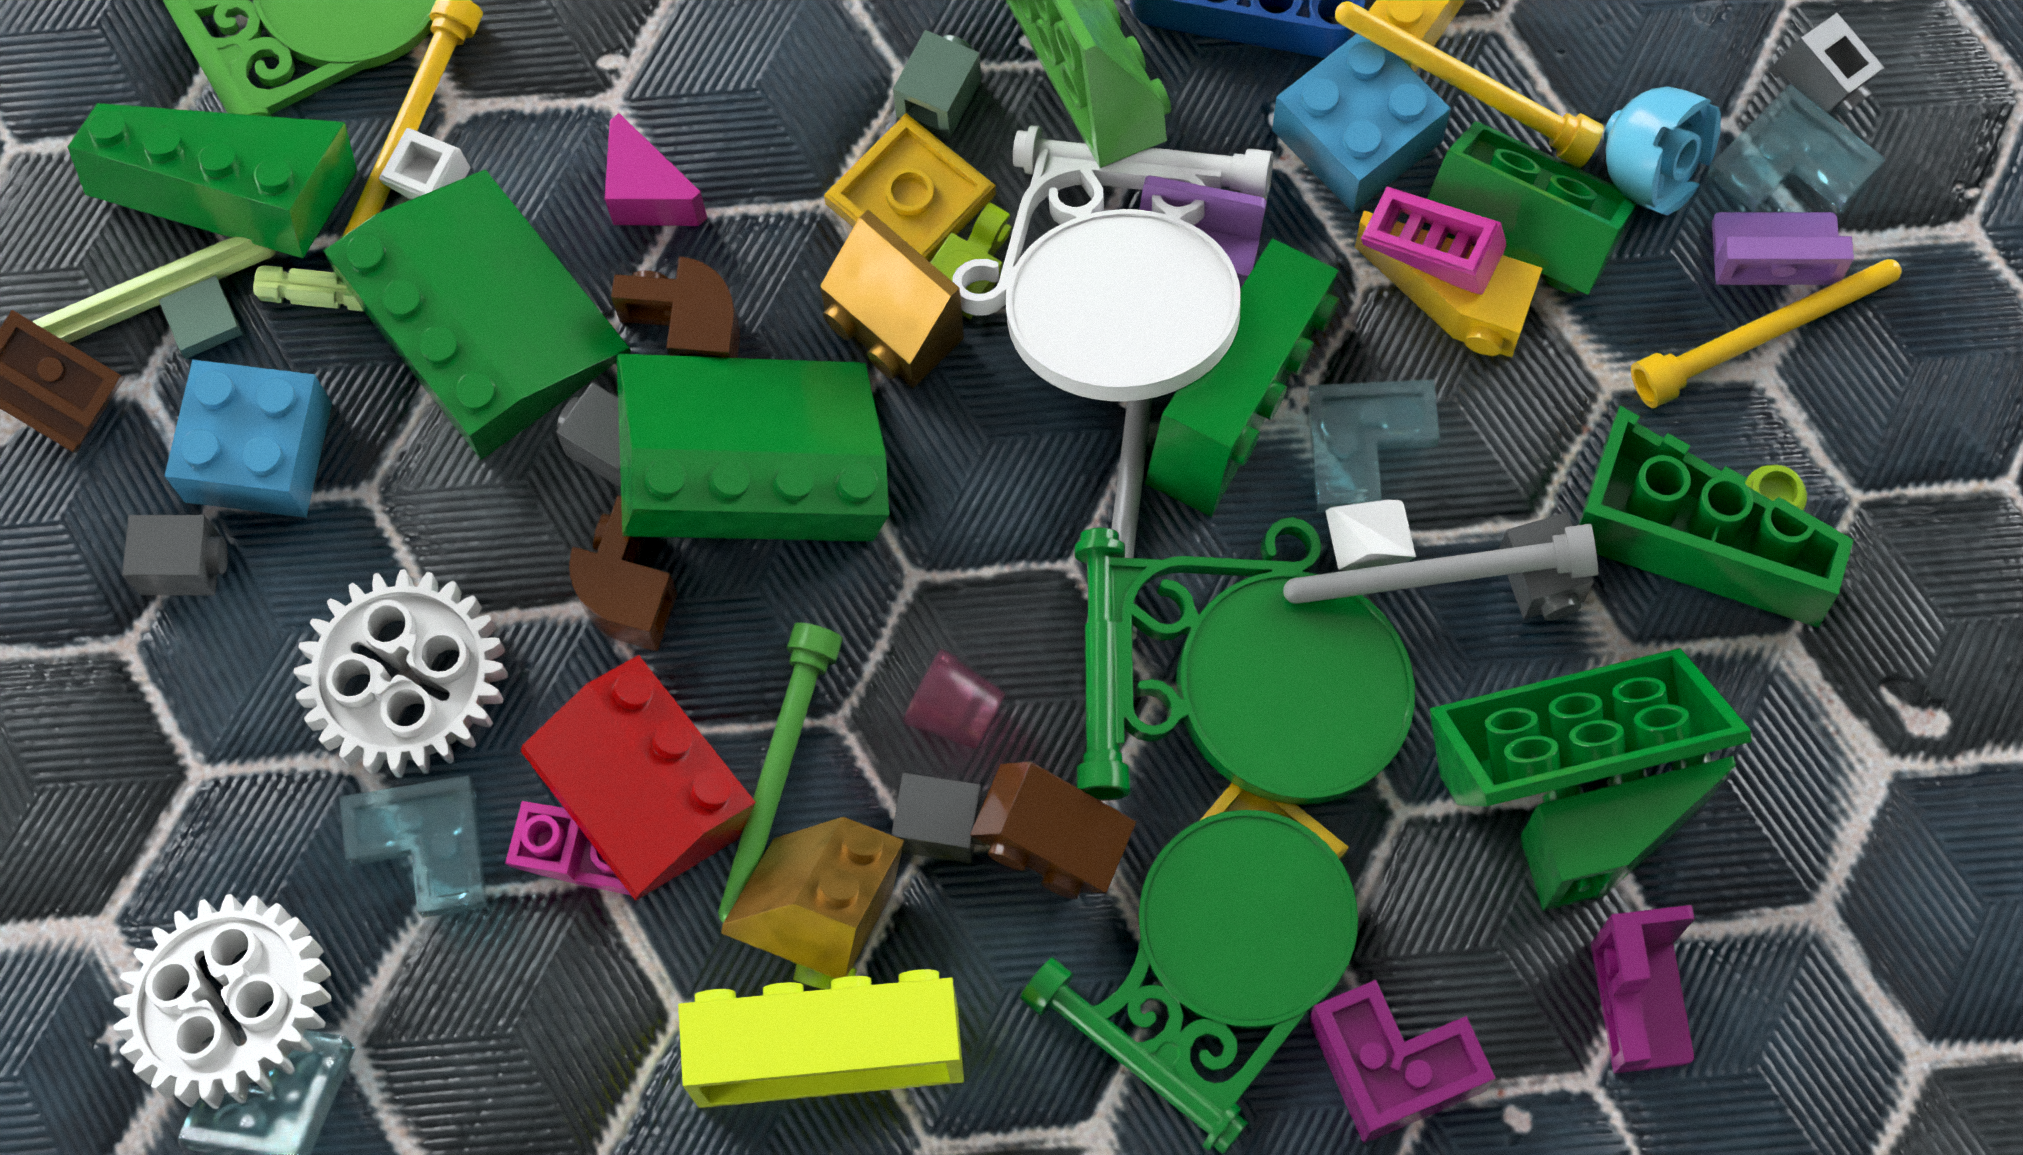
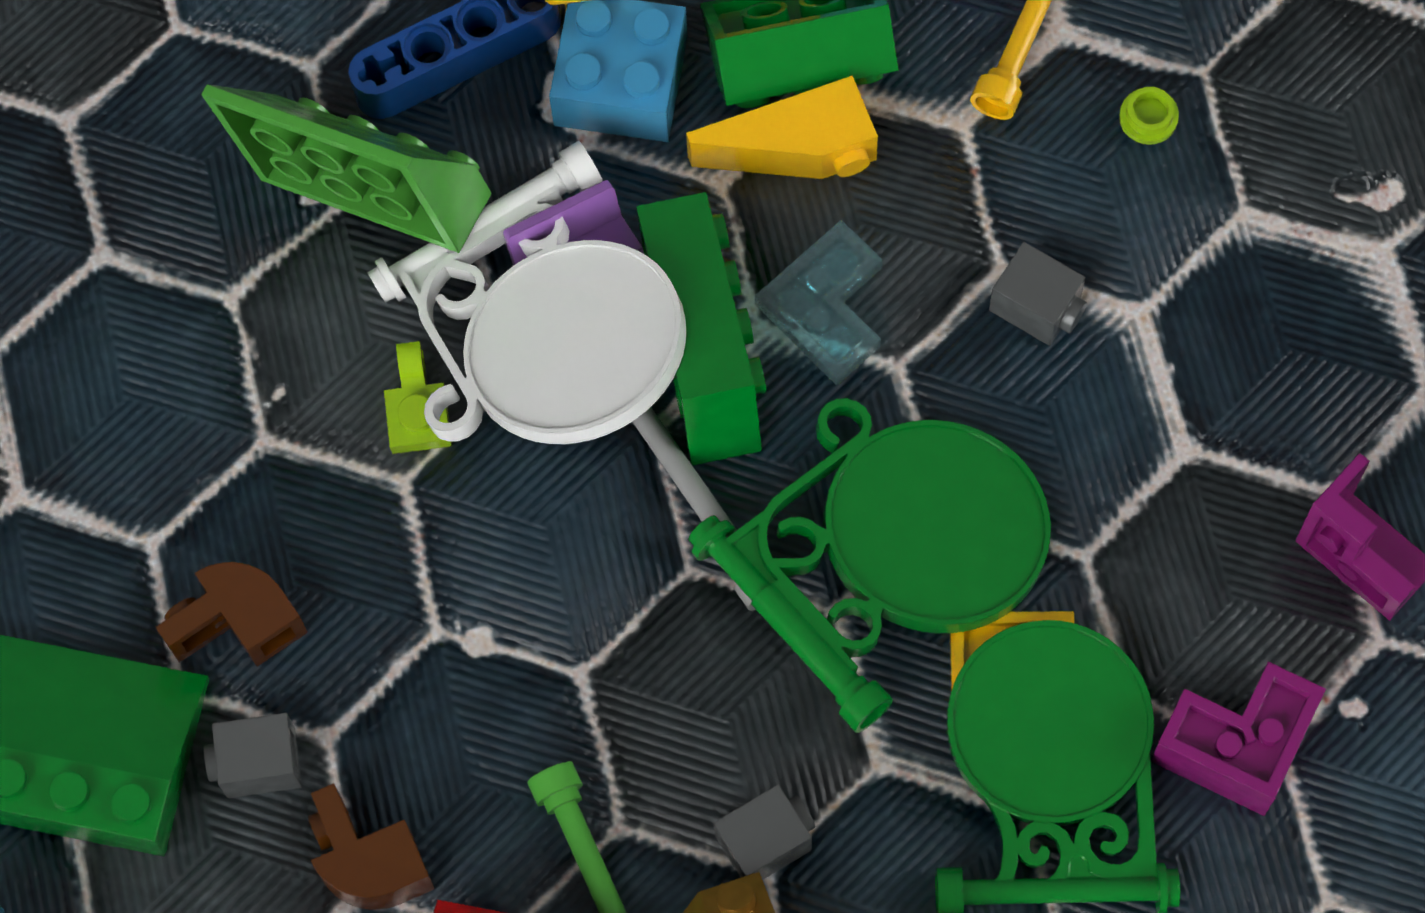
camera: 40 degrees left, 0 degrees up
(645, 185) = (111, 537): dark pink slope -> none
(749, 449) = (379, 675): green slope -> none
(892, 302) = (390, 477): slope -> none
(912, 187) = (322, 387): yellow tile -> none
(938, 83) = (272, 284): sand green brick -> none
(954, 702) = (700, 740): clear pink piece -> none
(1052, 829) = (859, 773): reddish brown brick -> none
(1370, 534) = (895, 371): white slope -> none
(1451, 266) = (763, 133): dark pink slope -> none
(1567, 553) = (1055, 267): light grey piece -> none
(1581, 729) = (1174, 393): green slope -> none
(1594, 839) = (1244, 465): green slope -> none
(1708, 528) = (1125, 176): green wedge -> none

